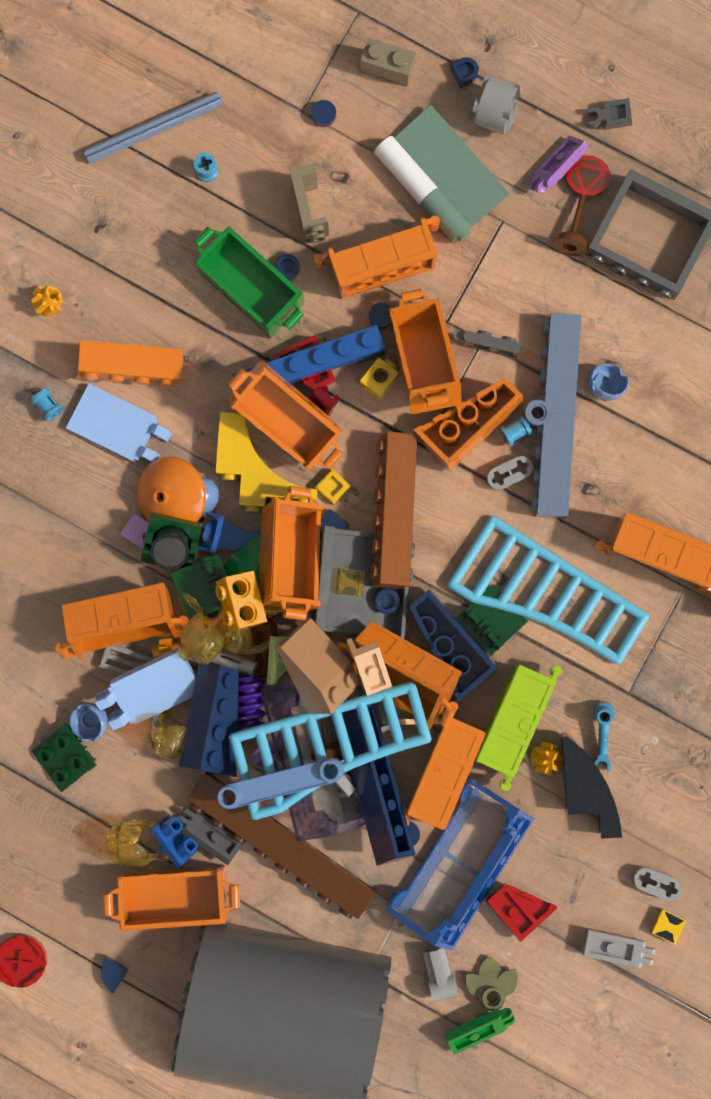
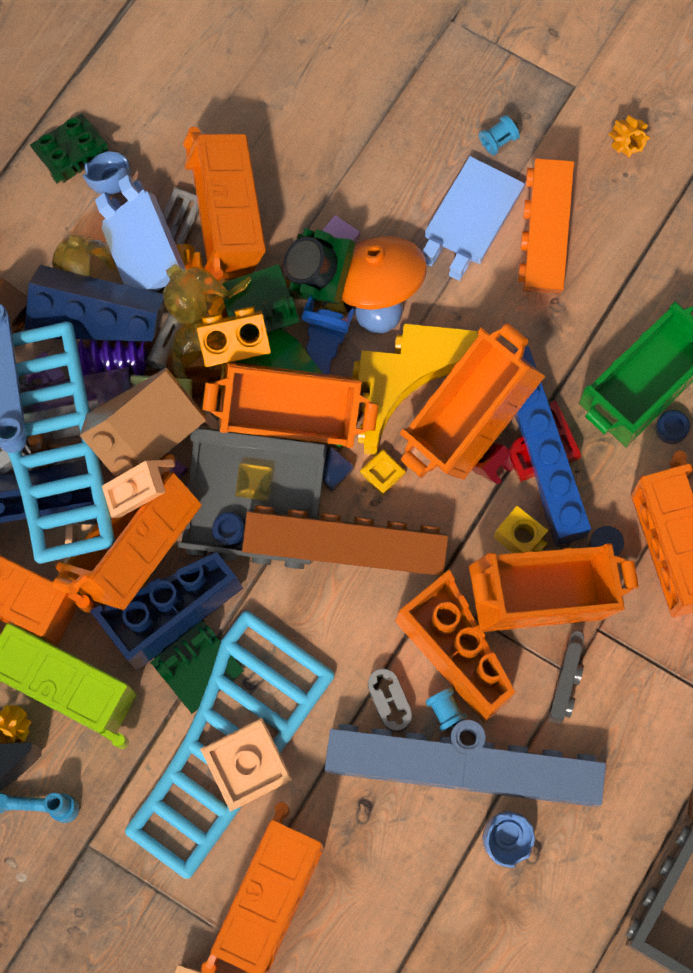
camera: 95 degrees right, 10 degrees down
(565, 576) = (246, 764): none -> light nougat tile

